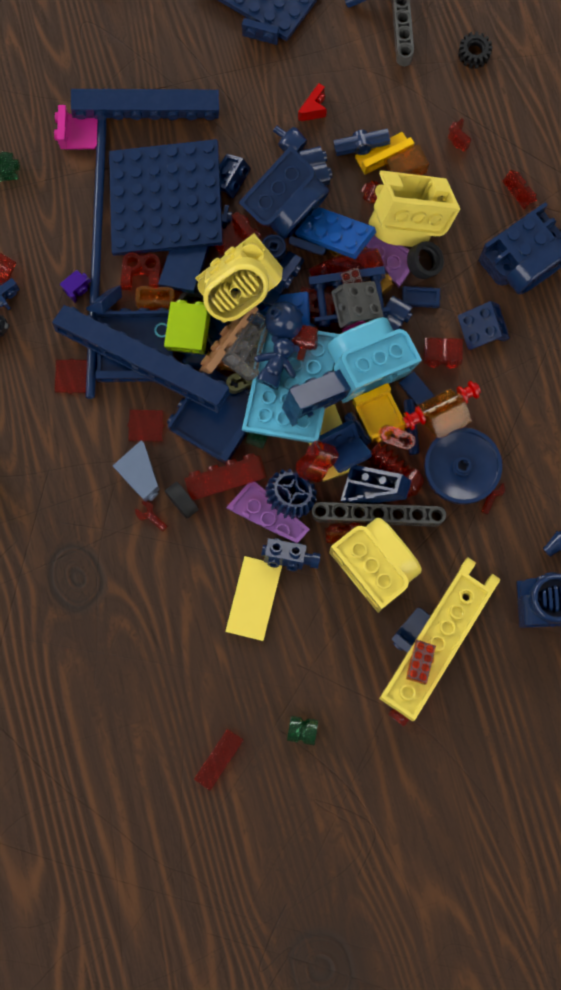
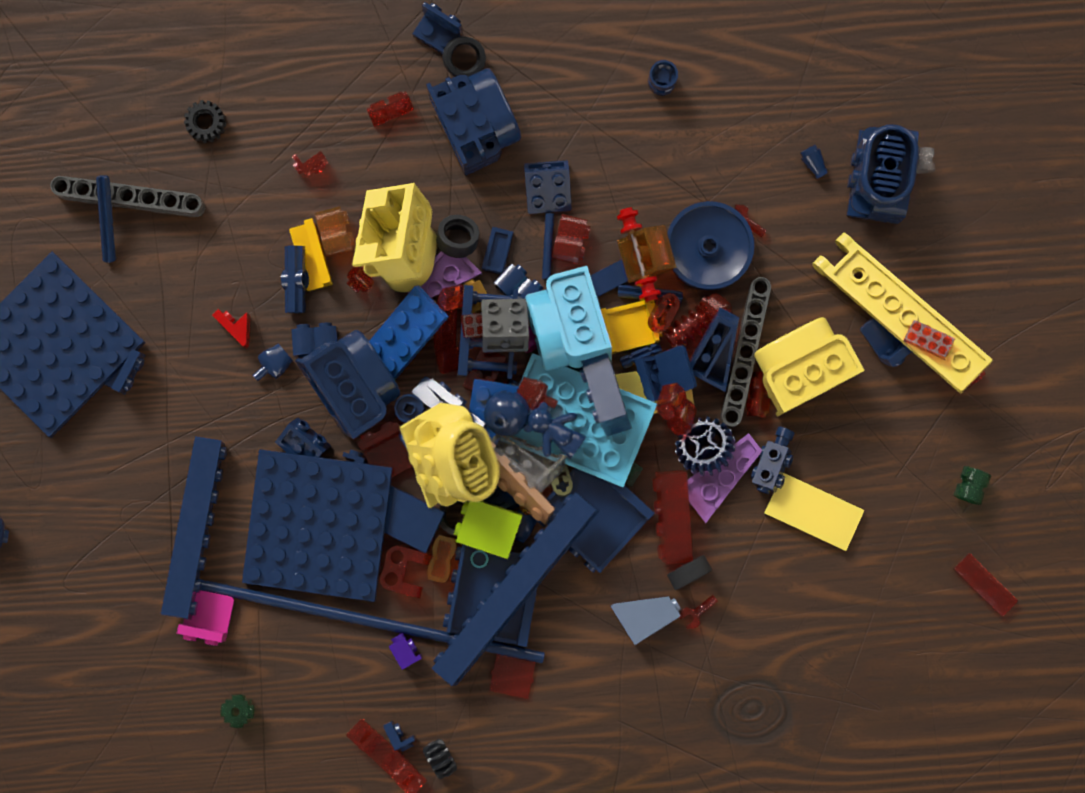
camera: 80 degrees left, 5 degrees up
(106, 300) = (432, 619): dark blue slope -> none
(145, 425) = (589, 598): clear red piece -> none
(307, 246) = (411, 370): dark blue tile -> none
(446, 334) = (548, 242): none -> dark blue bar

